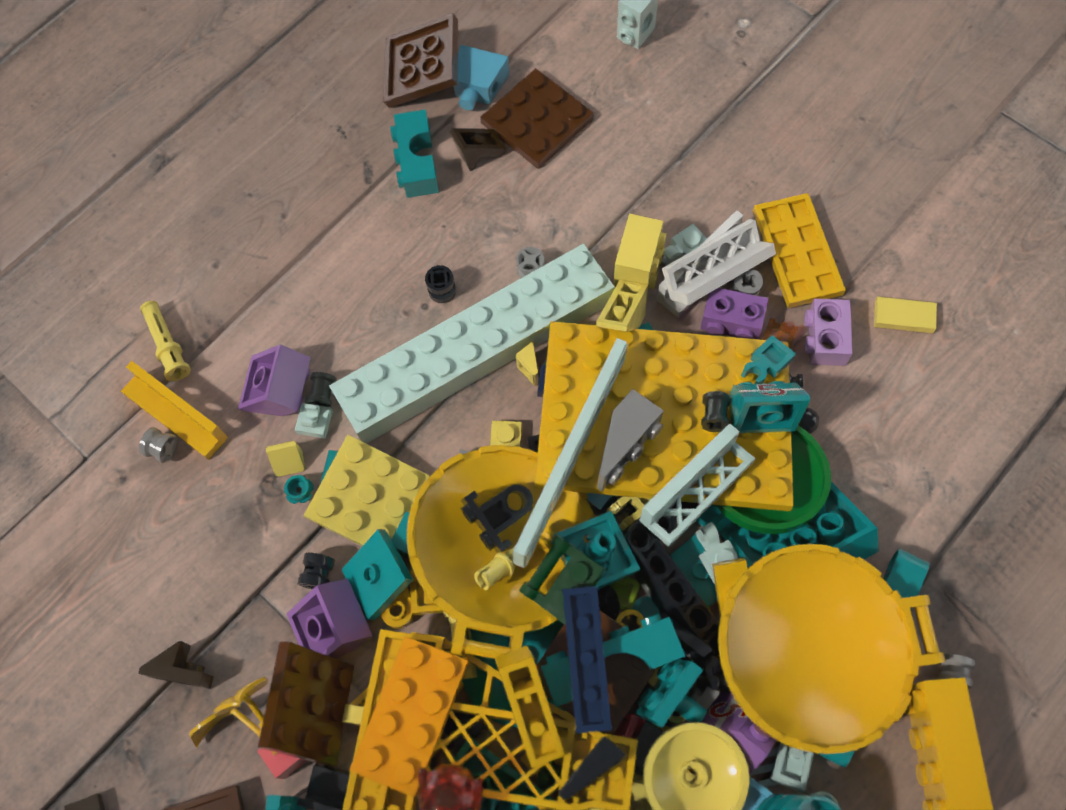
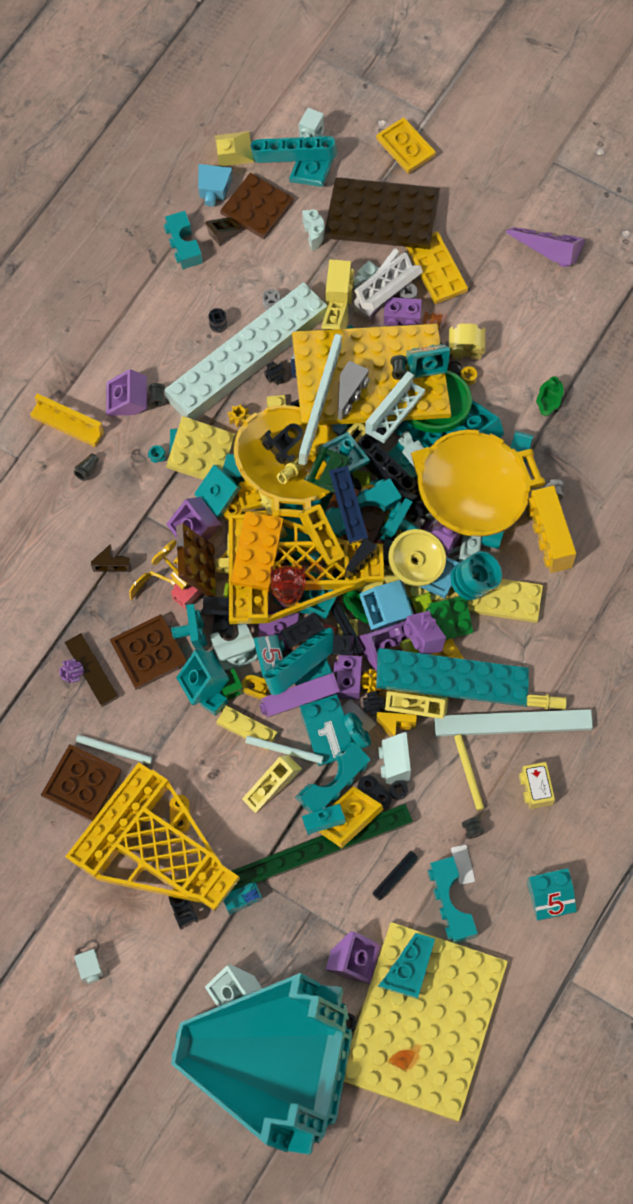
camera: 15 degrees left, 0 degrees up
(158, 445) = (64, 441): light grey wheel -> none
(167, 350) = (53, 385): light yellow pin -> none
(181, 494) = (85, 468): none -> pearl dark grey cone
(286, 458) = (145, 437): light yellow slope -> none
(313, 420) = (155, 413): light aqua tile -> none
(316, 570) = (179, 494): black wheel -> none
(421, 61) = (174, 178): reddish brown plate -> none
(437, 438) = (238, 410): none -> yellow gear
(513, 383) = (275, 373): none -> black gear
(519, 32) = (234, 148): none -> light yellow slope
(527, 363) = (281, 357): light yellow slope -> none
(606, 41) = (294, 149): none -> teal beam
(617, 162) = (314, 226): none -> light aqua cylinder
(627, 74) = (311, 172): none -> teal plate
(725, 154) = (382, 213): none -> dark brown plate
(769, 358) = (426, 333): teal plate -> none
(776, 58) = (405, 145): none -> yellow plate
(834, 428) = (473, 378): none -> yellow bush
(835, 333) = (462, 314): lavender brick -> none
(835, 379) = (467, 341): none -> light yellow brick
(905, 314) = (506, 298): light yellow tile -> none
(965, 495) = (550, 396): none -> green arm
(1001, 248) = (559, 249): none -> medium lavender wedge

